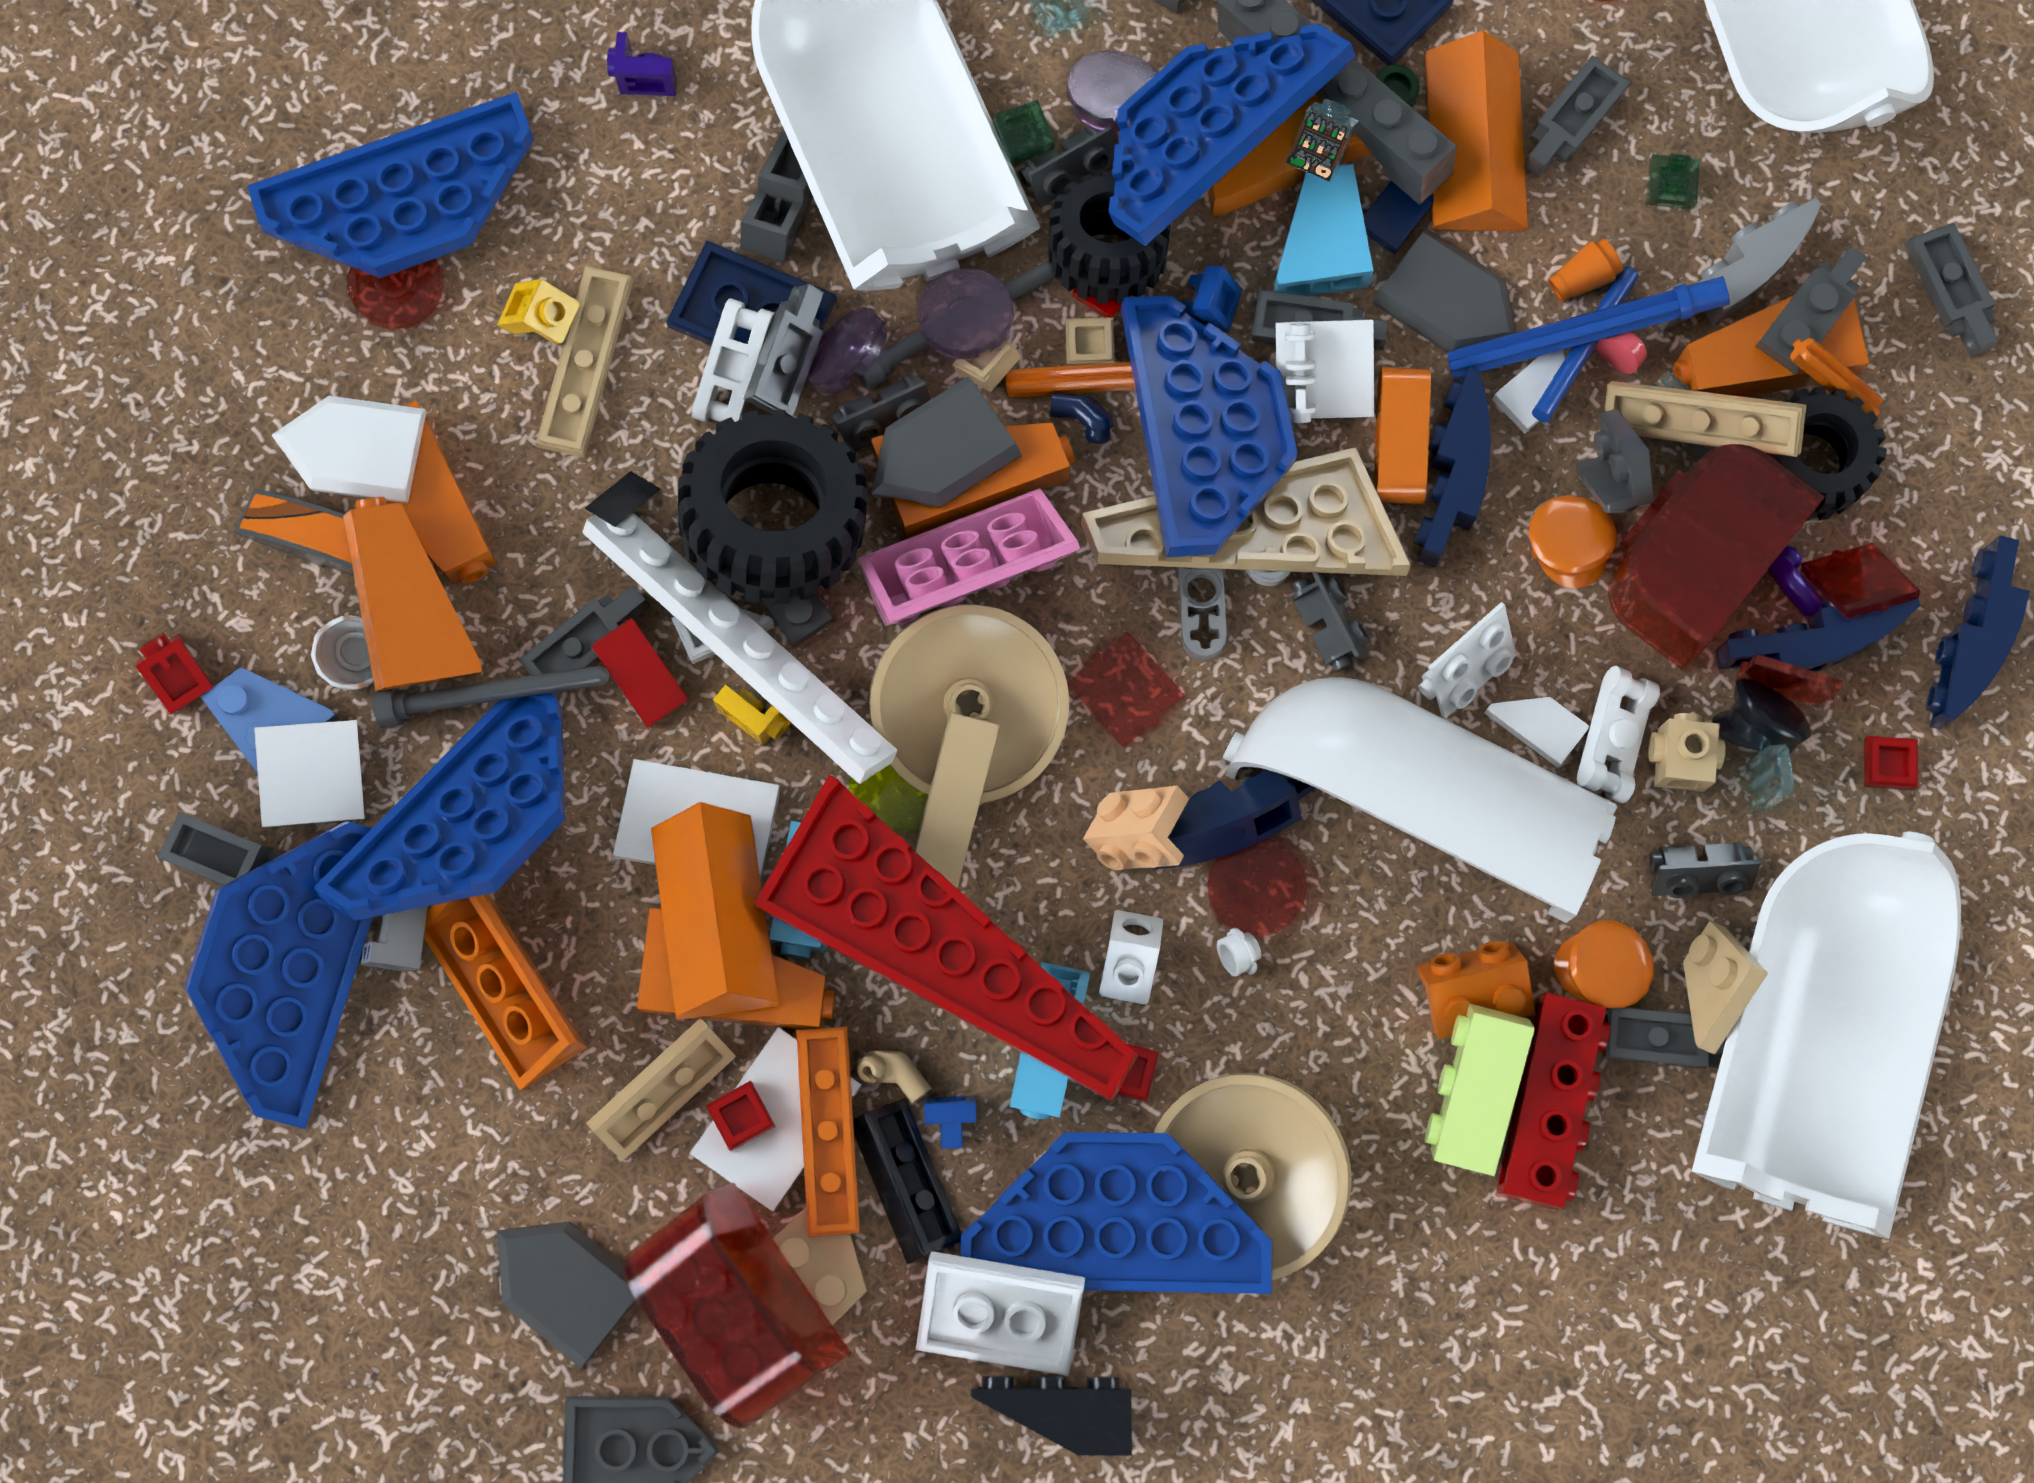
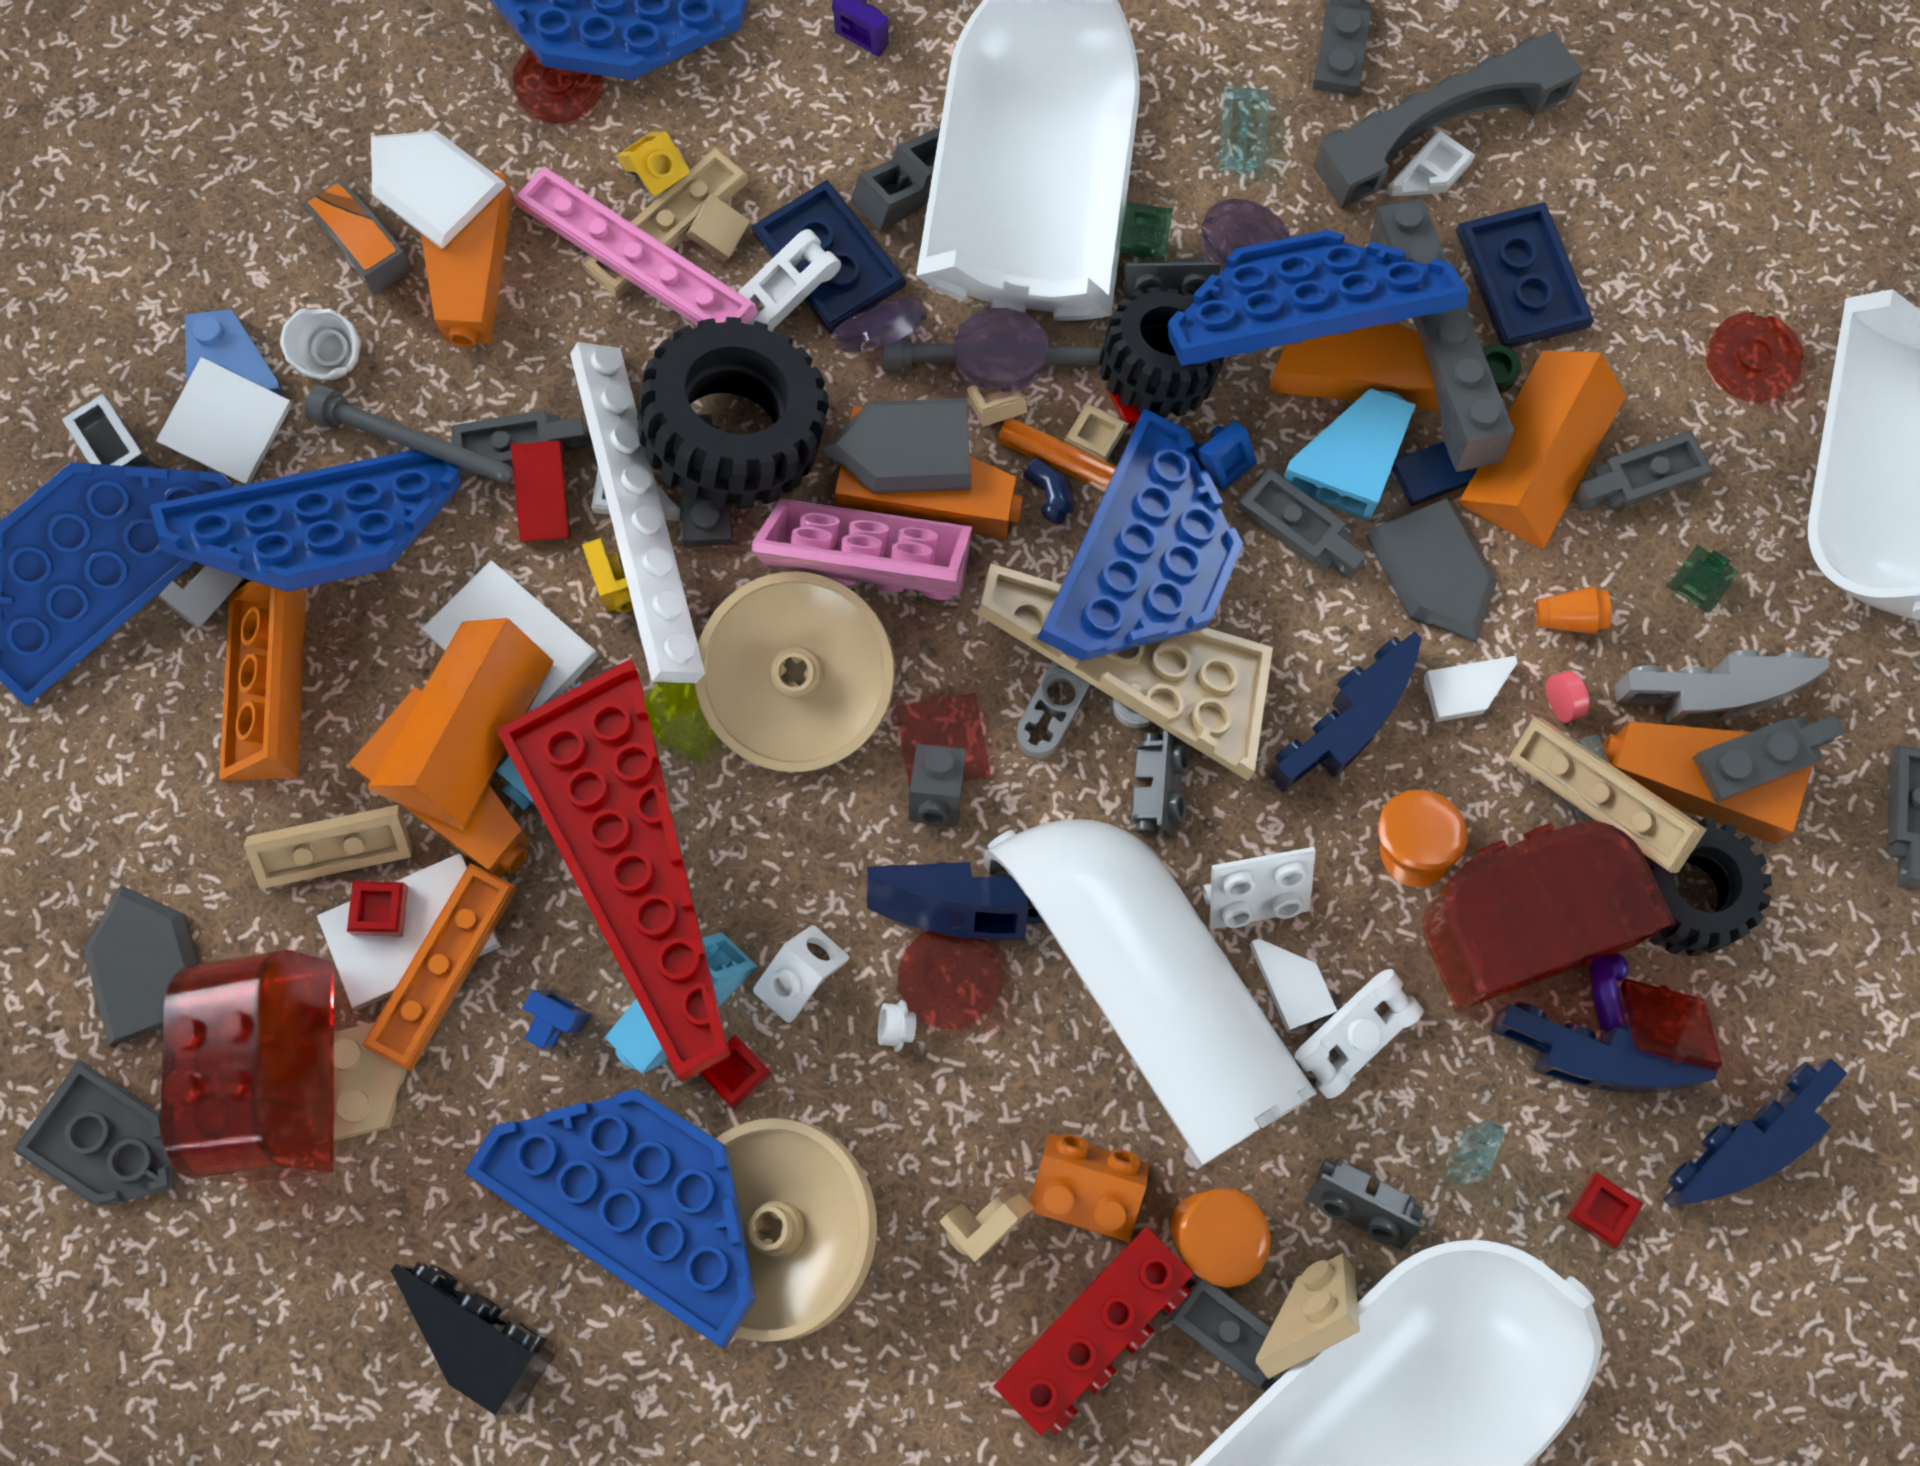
camera: 30 degrees right, 5 degrees down
(172, 671) = (175, 282): red bracket -> none
(403, 606) = (380, 328): orange slope -> none
(578, 408) = (630, 251): none -> bright pink tile
(622, 498) = (619, 344): black sticker -> none
(637, 341) = (718, 228): none -> tan tile
(787, 352) = (829, 299): dark grey hinge -> none
(863, 420) = (861, 388): dark grey hinge -> none
(893, 1067) = (535, 947): tan arm -> none
(906, 1180) = (483, 1051): black slope -> none
(956, 794) = (730, 745): tan tile -> none
(1000, 1313) = (481, 1216): white tile -> none
(1135, 828) = (866, 857): light nougat bracket -> none
(1147, 730) = (936, 785): none -> dark grey bracket
(1323, 139) = (1397, 364): brick -> none
(1326, 368) = (1286, 565): white hinge -> none
(1402, 435) = (1320, 660): orange beam -> none
(1423, 1063) = (982, 1233): none -> tan bracket
(1479, 1089) = (1030, 1277): yellowish green brick -> none
(1579, 354) = (1535, 673): blue bar -> none
(1589, 327) = (1638, 678): blue axle -> none
(1622, 471) = (1496, 803): dark grey bracket -> none
(1686, 753) = (1399, 1098): tan brick -> none
(1762, 718) = (1502, 1095): black piece -> none
(1790, 680) = (1547, 1075): clear red piece -> none
(1833, 374) = (1751, 821): orange axle -> none

